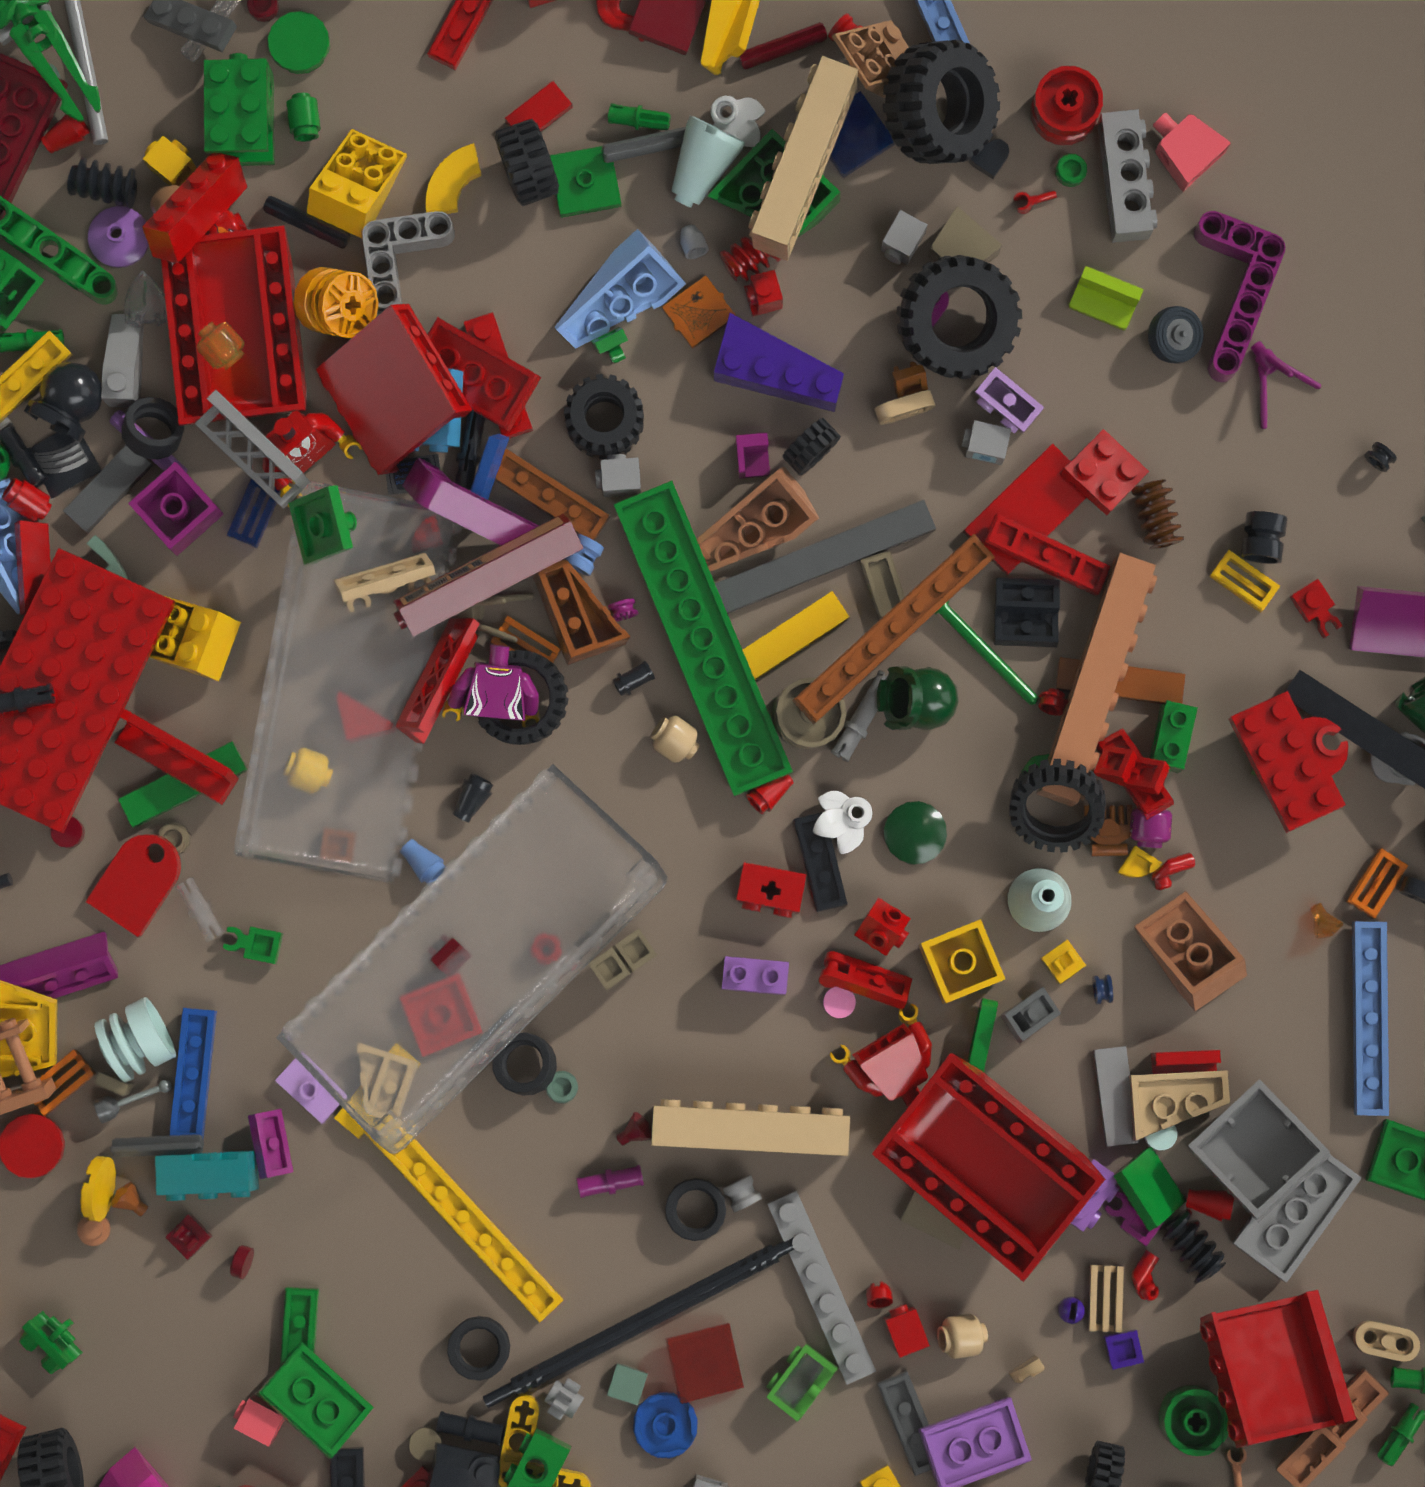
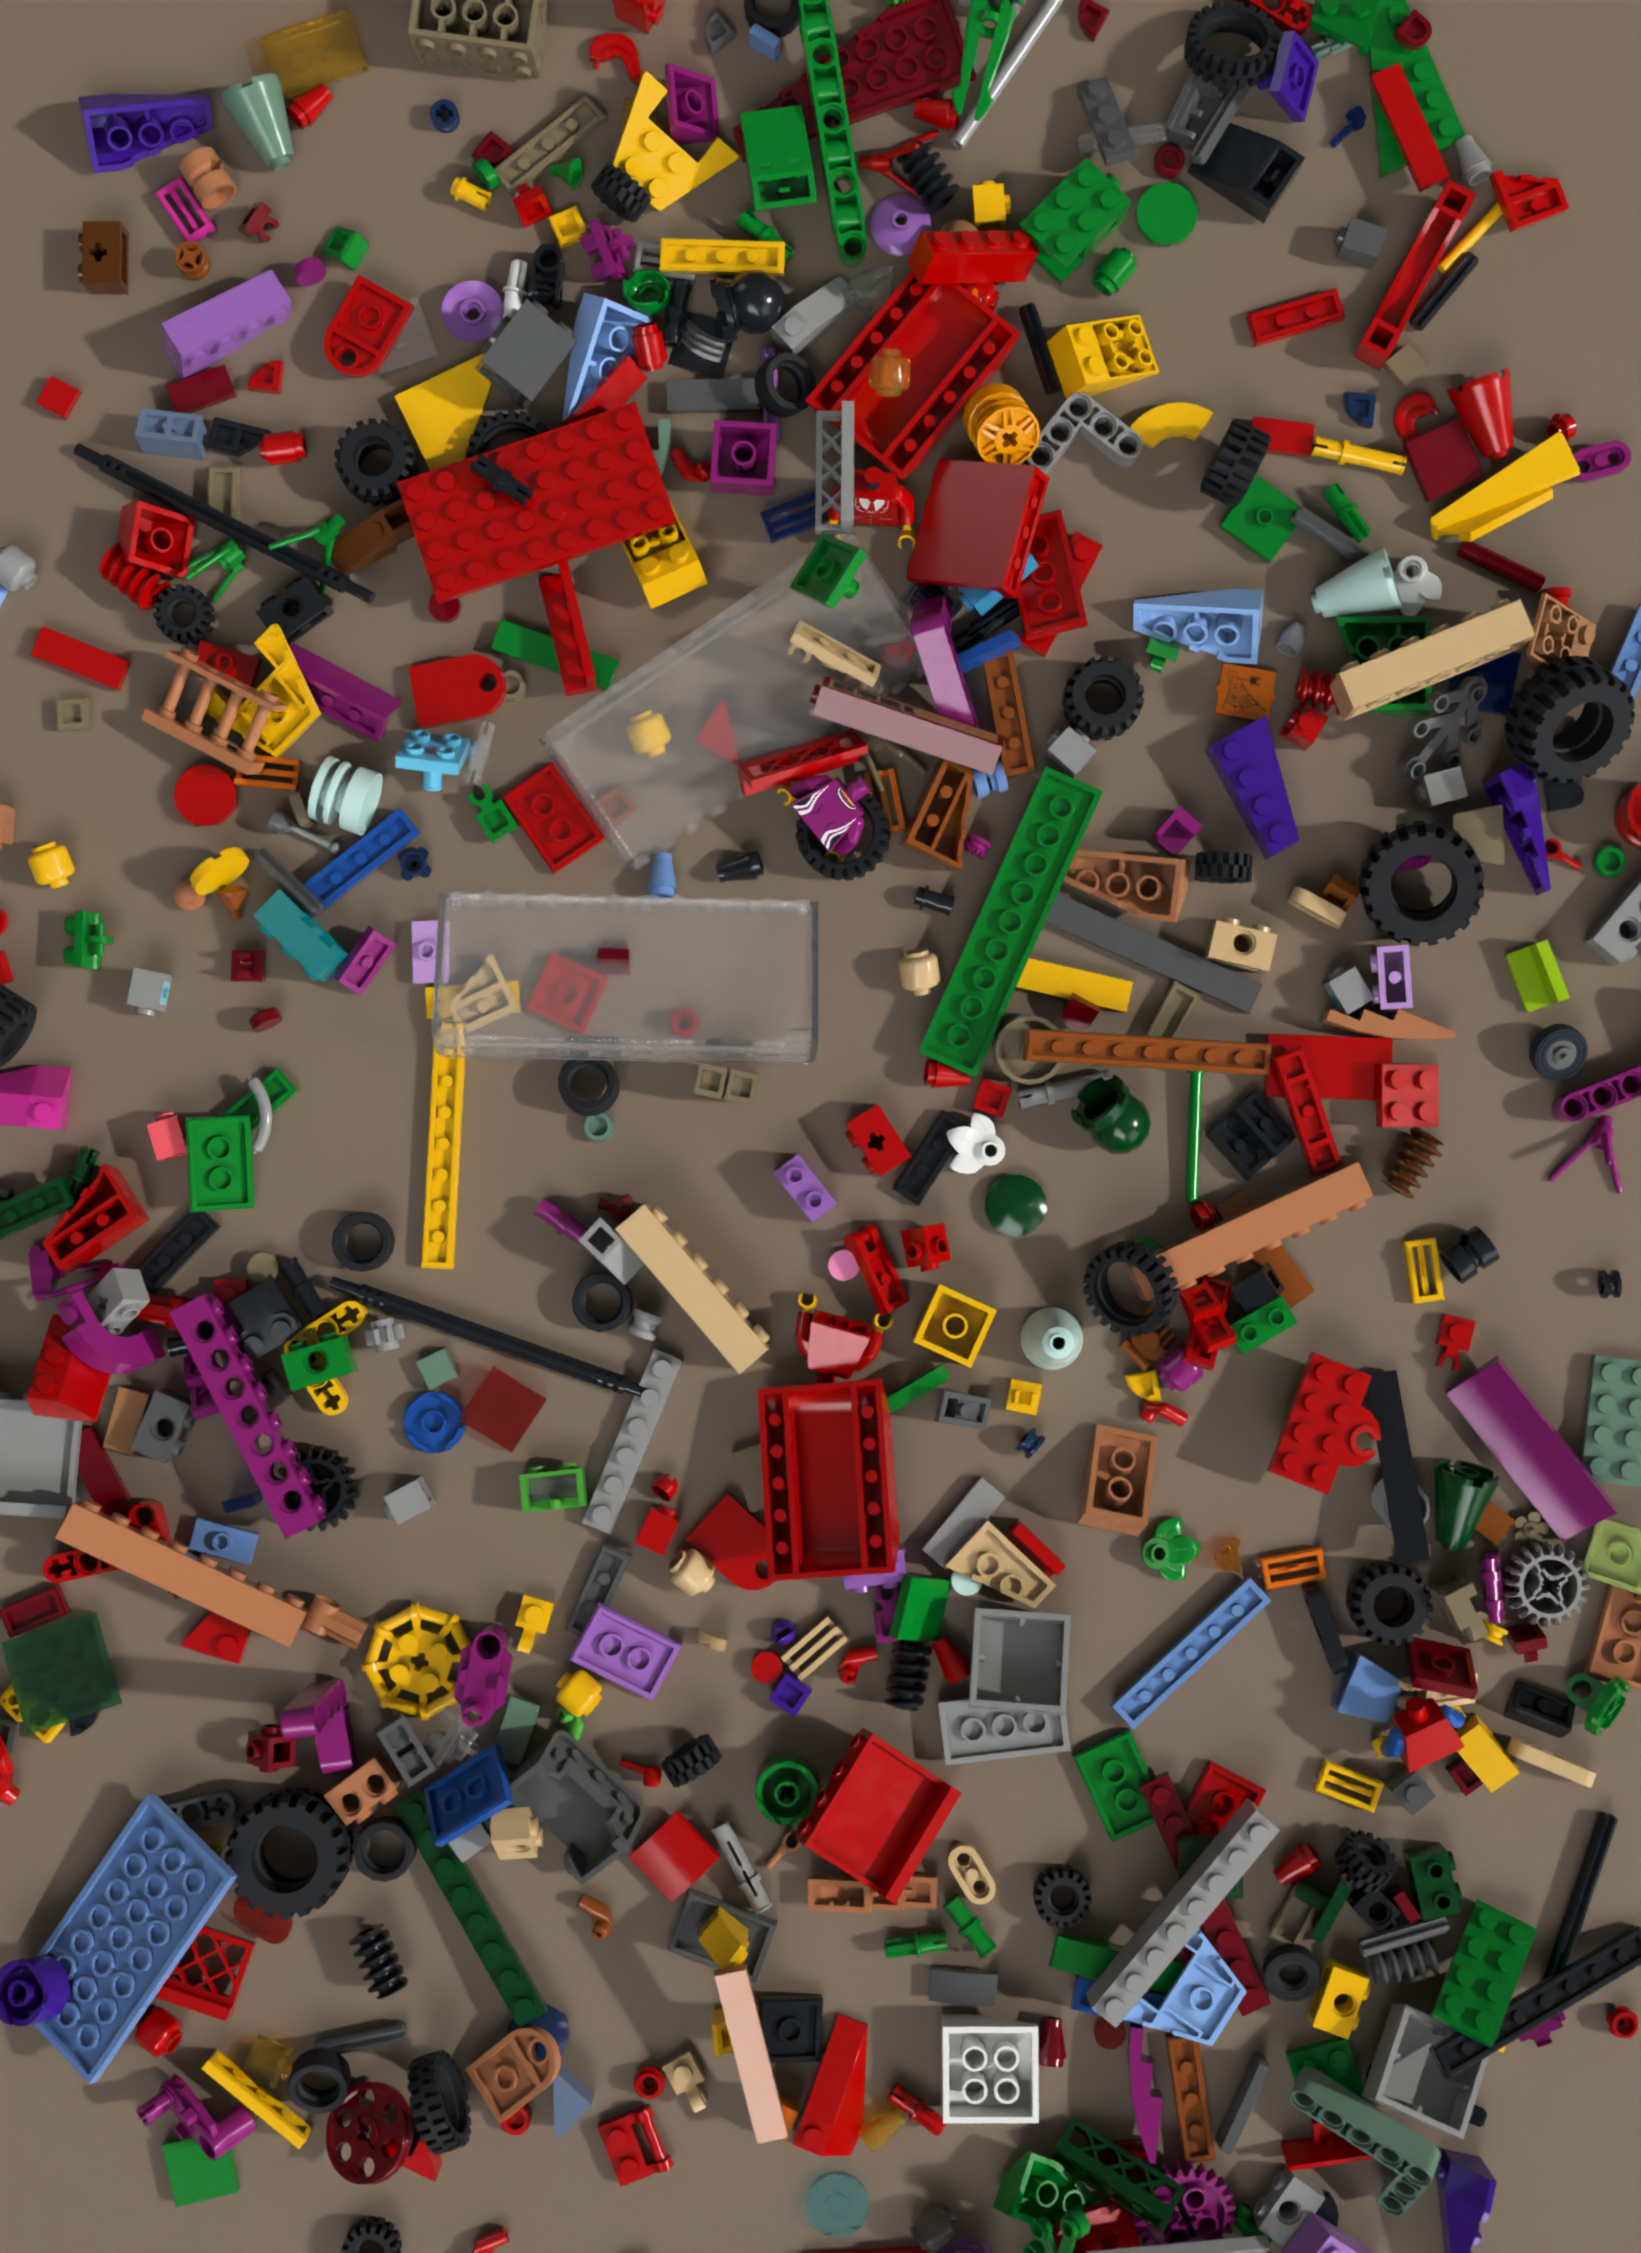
camera: 50 degrees right, 5 degrees up
(61, 204) = (883, 161): none -> red plant
(135, 1330) = (149, 991): none -> light grey brick
(146, 556) = (689, 470): none -> red arm
(169, 946) = (432, 755): none -> medium azure plate
(225, 1038) = (406, 859): none -> dark blue plate
(301, 901) = (553, 818): none -> red tile
(312, 1330) = (265, 1112): none -> light grey piece
(572, 37) = (1360, 408): none -> dark blue tile
(594, 78) = (1345, 452): none -> yellow pin
(665, 1164) = (611, 1251): none -> light grey slope
(817, 651) = (1079, 1013): none -> dark red tile
(819, 774) = (992, 1098): none -> red tile
(856, 157) = (1467, 697): none -> dark grey plant
(870, 504) = (1221, 945): none -> tan brick
(969, 1283) = (733, 1542): none -> red tile
(983, 203) = (1522, 821): none -> dark purple wedge
(1047, 431) = (1397, 1026): none -> nougat slope
(1086, 1347) = (766, 1666): none -> red tile
(1144, 714) = (1256, 1288): none -> black brick
(1283, 958) = (1174, 1548): none -> green plate

